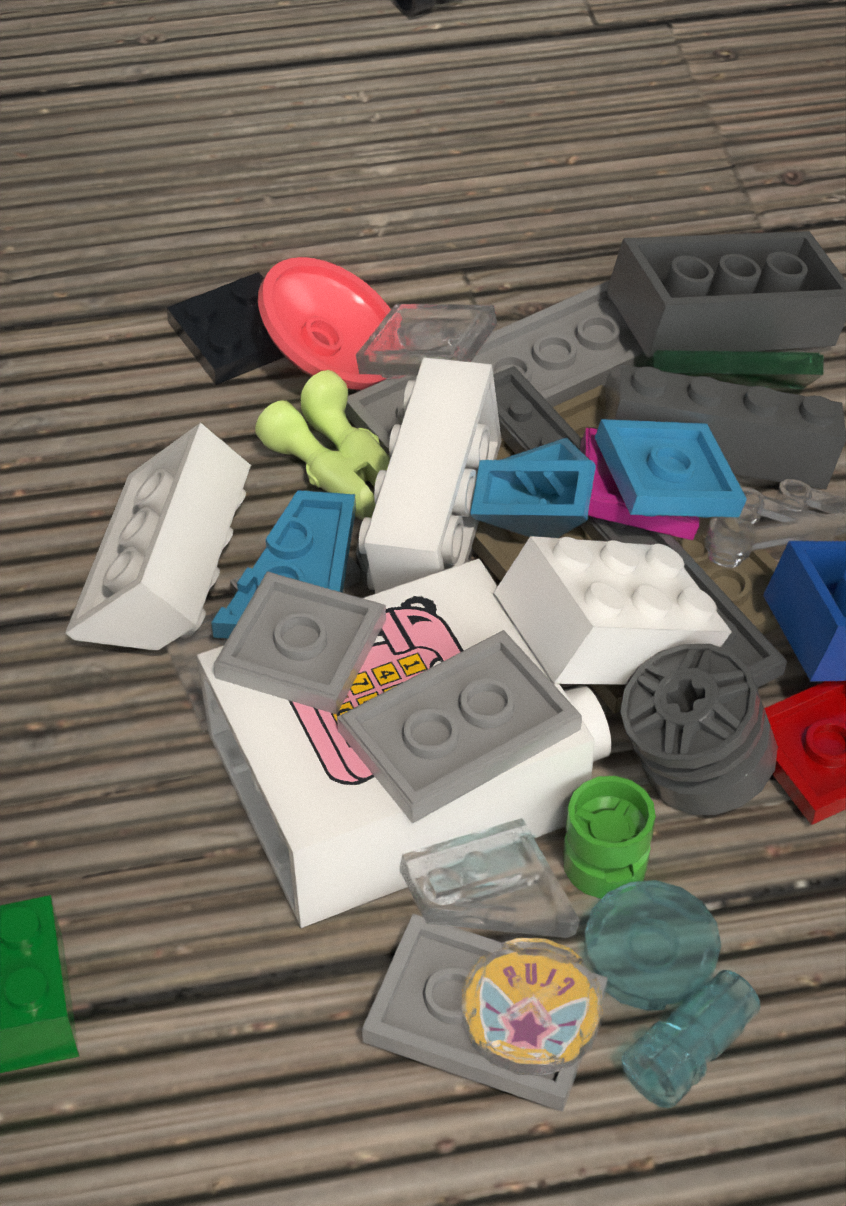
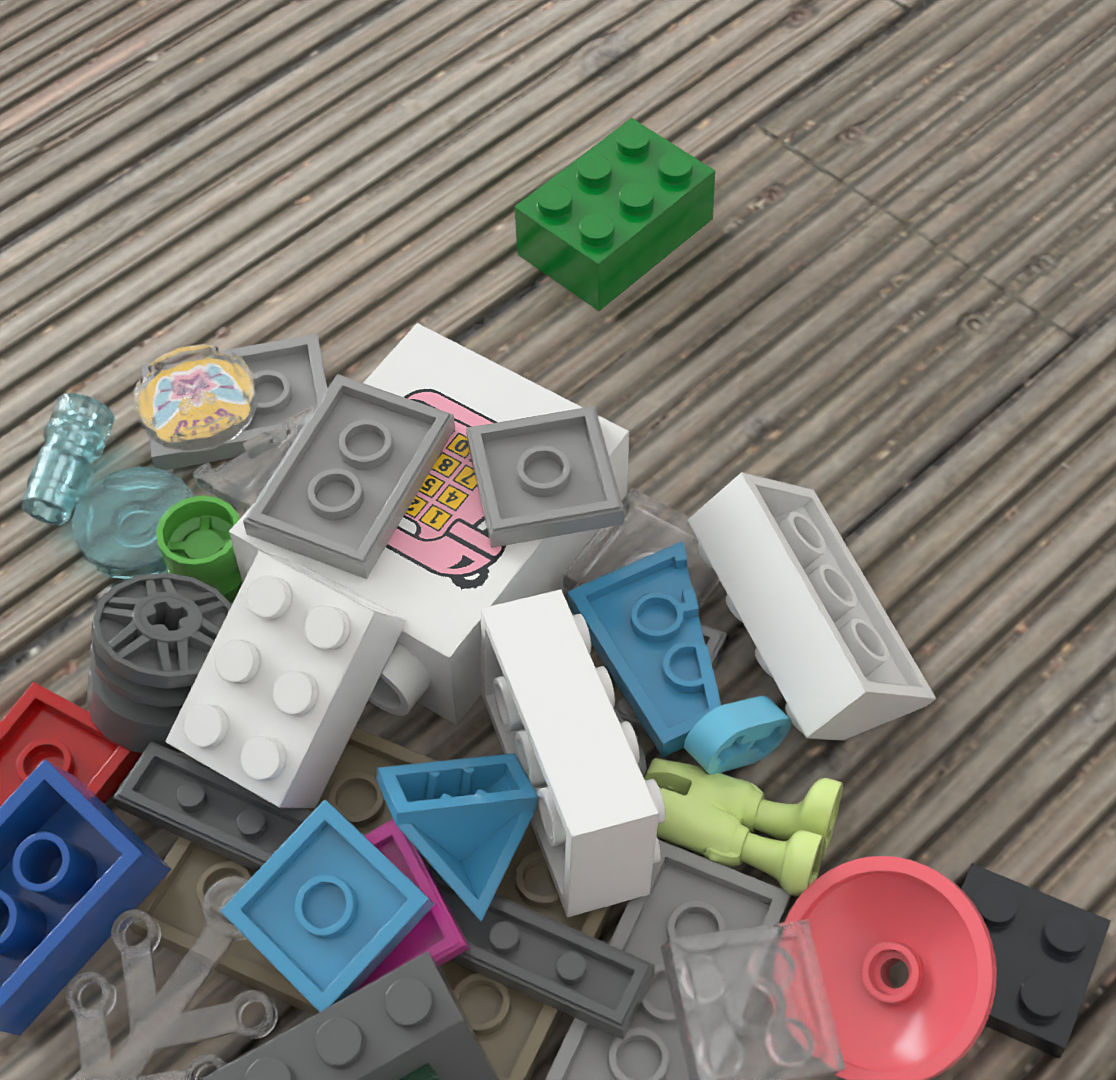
camera: 150 degrees right, 5 degrees up
(307, 469) = (737, 734): none -> medium azure beam

